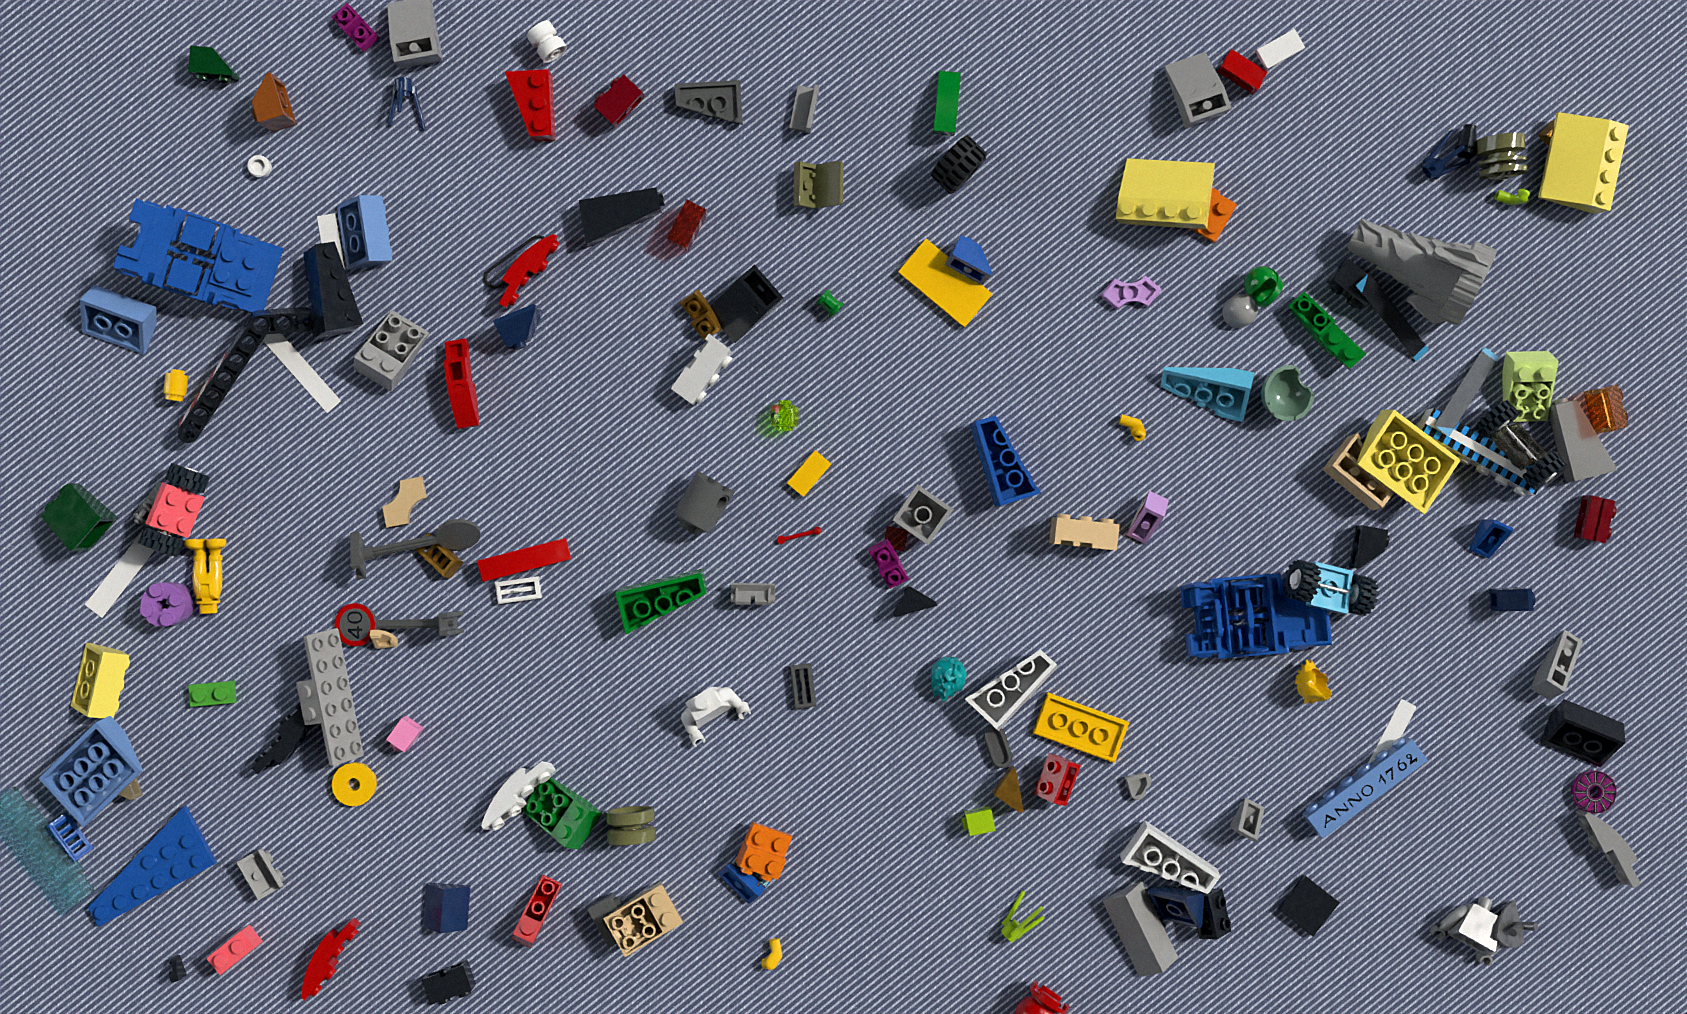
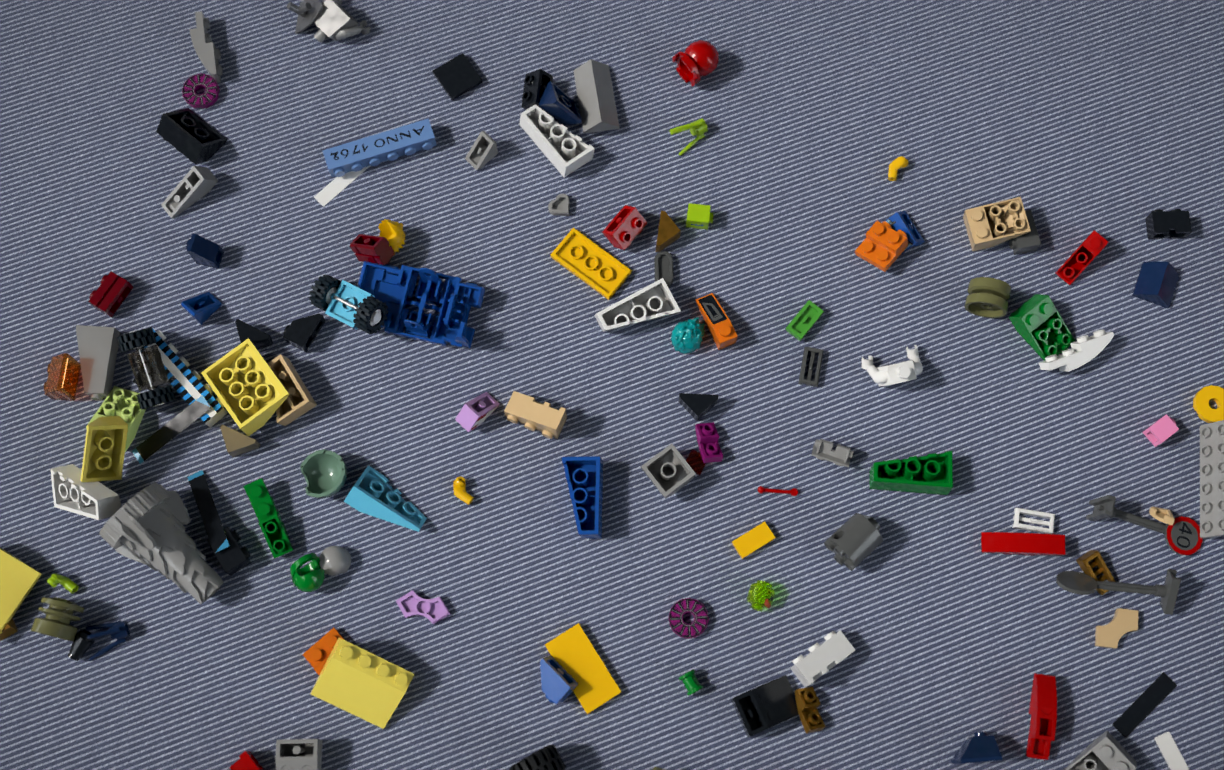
camera: 160 degrees left, 15 degrees down
(357, 432) = (1144, 705): none -> black sticker
(825, 736) = (804, 320): none -> bright green plate
(857, 381) = (693, 607): none -> tile
(922, 705) = (717, 321): none -> orange slope
(1328, 660) = (372, 249): none -> dark red brick
(1392, 399) = (237, 442): none -> dark tan slope
(1424, 522) = (258, 338): none -> black slope
(1528, 339) = (104, 449): none -> light yellow slope
(1530, 287) = (82, 498): none -> white wedge

